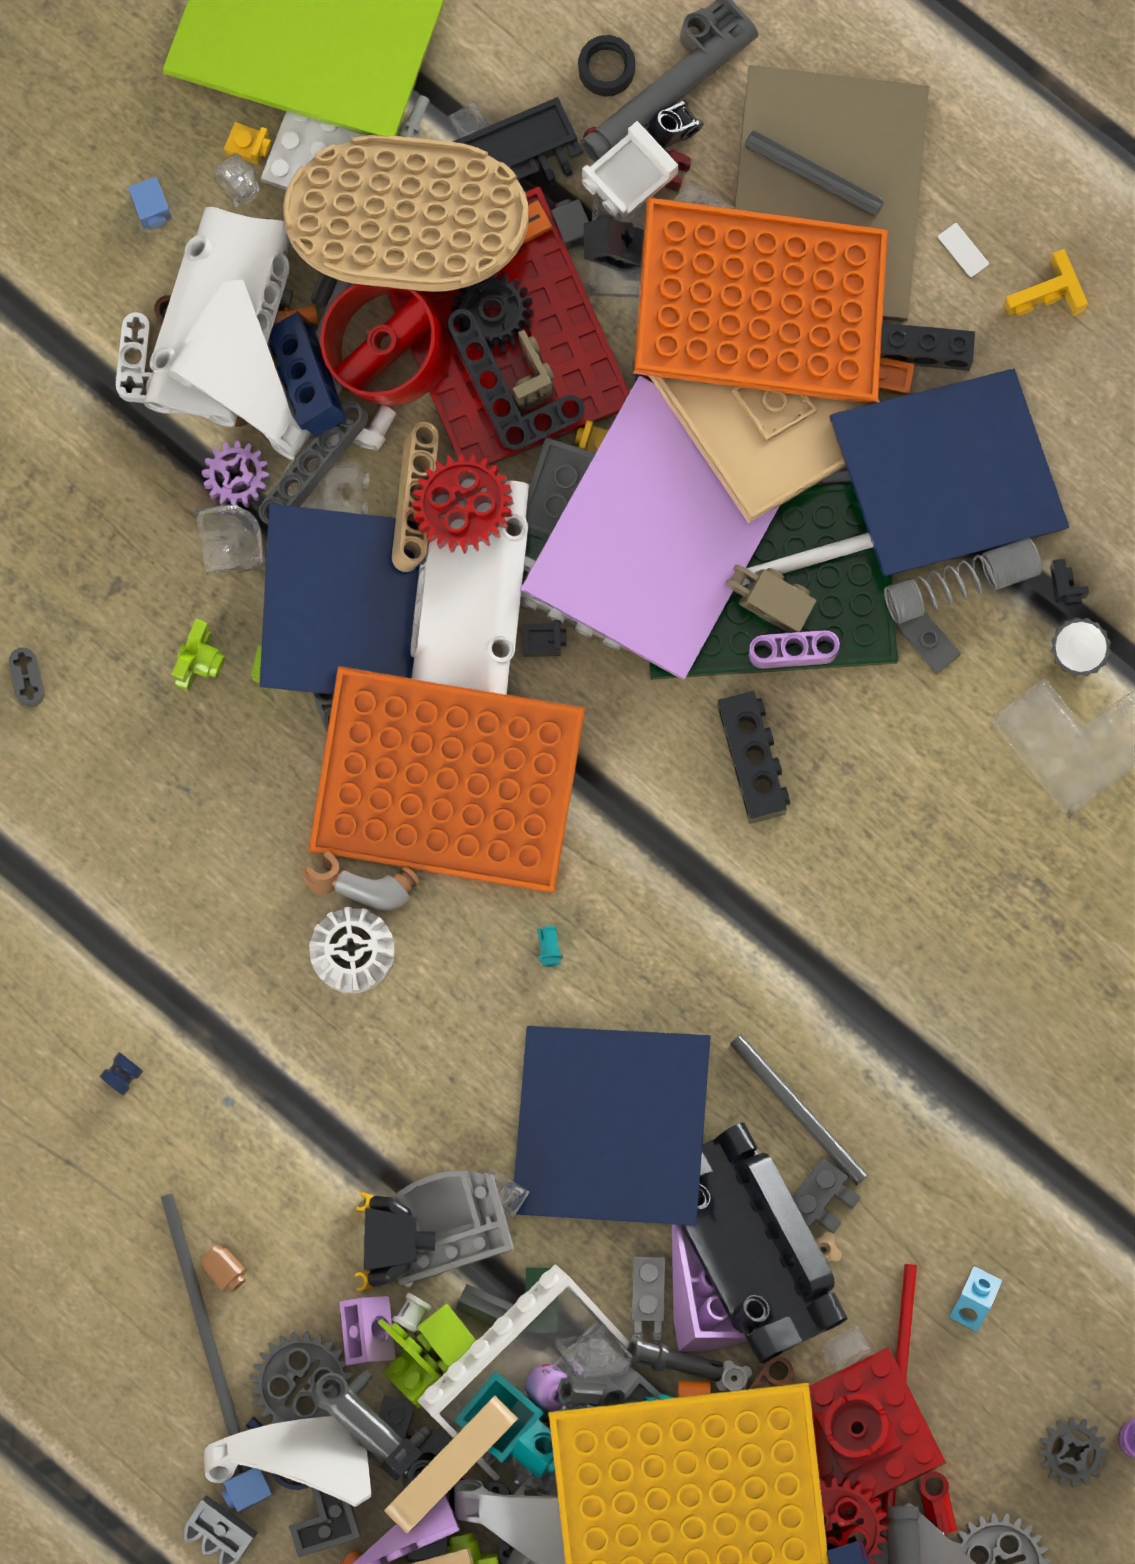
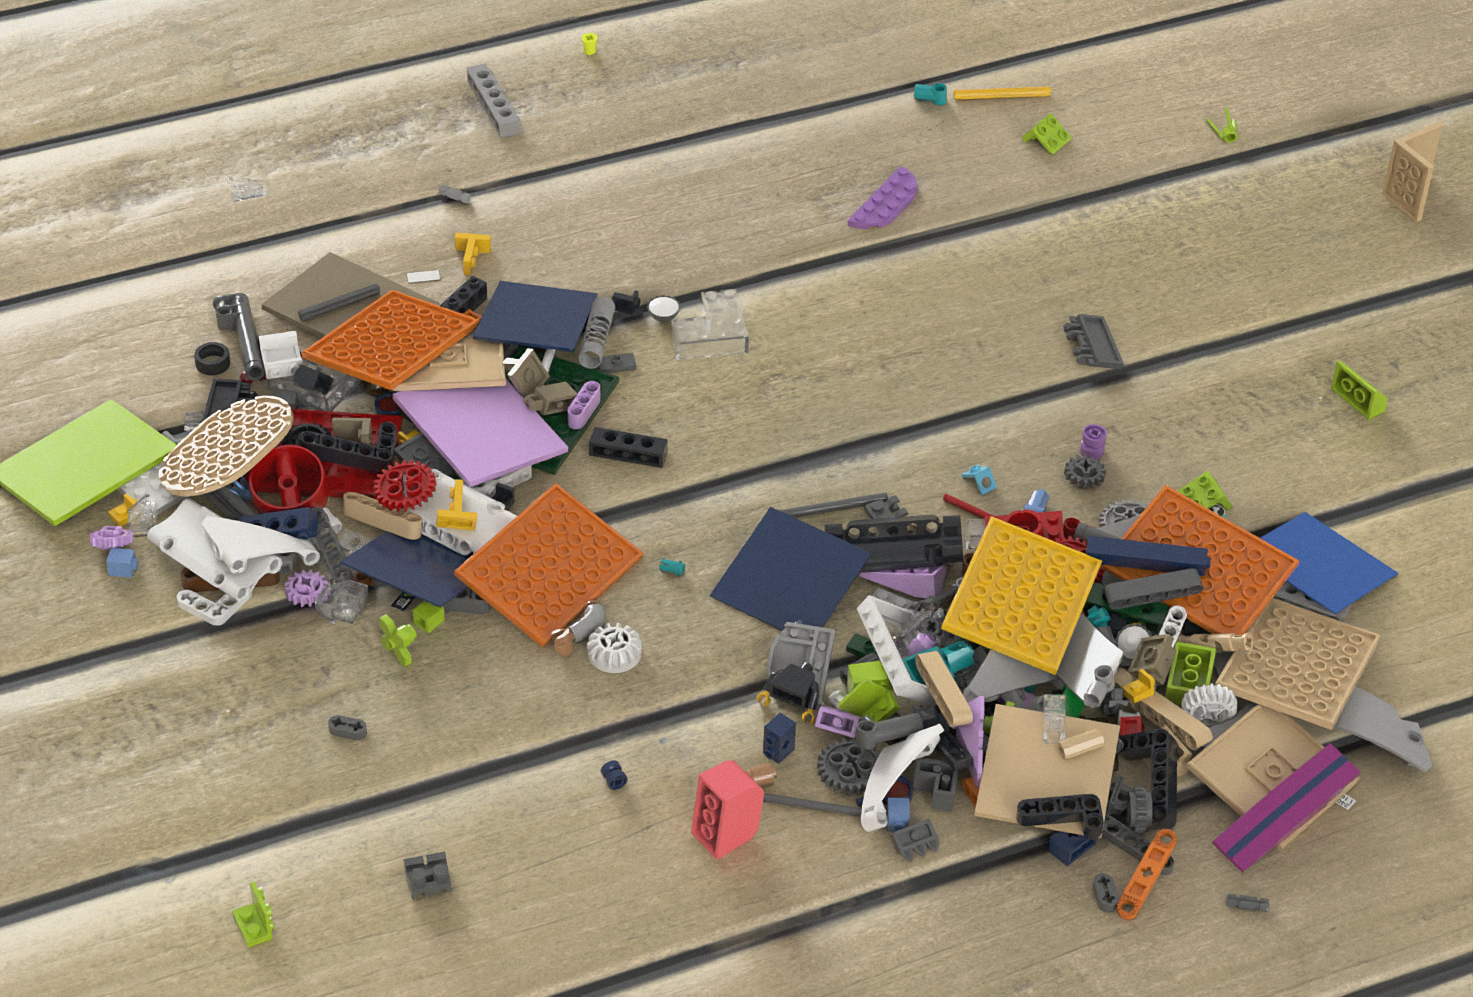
camera: 65 degrees left, 35 degrees down
(108, 1267) = (726, 808): none -> coral brick
(180, 162) = (111, 537): none -> lavender gear
(286, 1265) = (779, 738): none -> dark blue brick
(367, 1519) = (953, 752): none -> black plate
(455, 600) = (455, 517): none -> yellow bracket
(786, 539) = (526, 372): none -> dark tan bracket
(947, 1413) = (1038, 501): none -> medium blue piece

